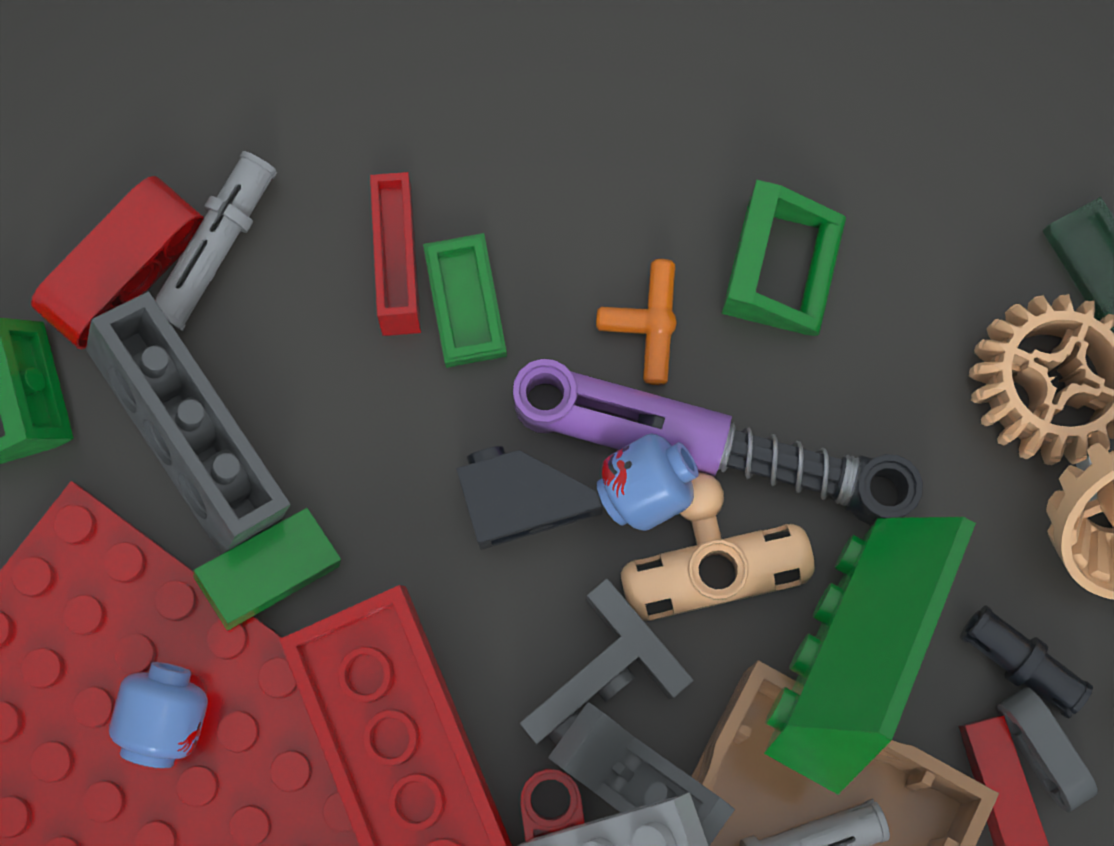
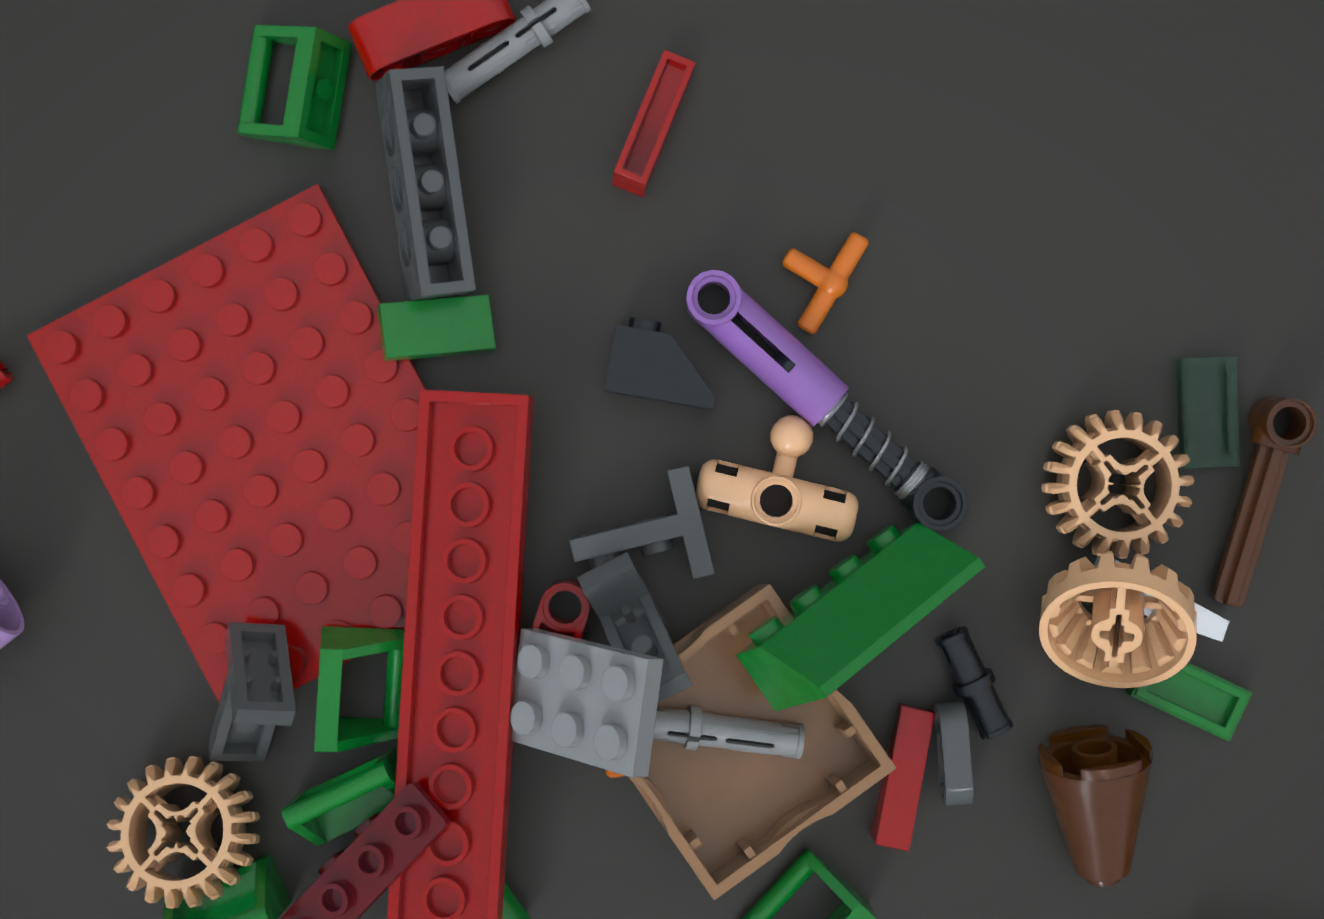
camera: 25 degrees right, 10 degrees up
(158, 716) = (303, 402): medium blue head -> none
(465, 300) = (689, 188): green tile -> none
(647, 482) = (756, 408): medium blue head -> none
(741, 298) = (935, 261): green tile -> none

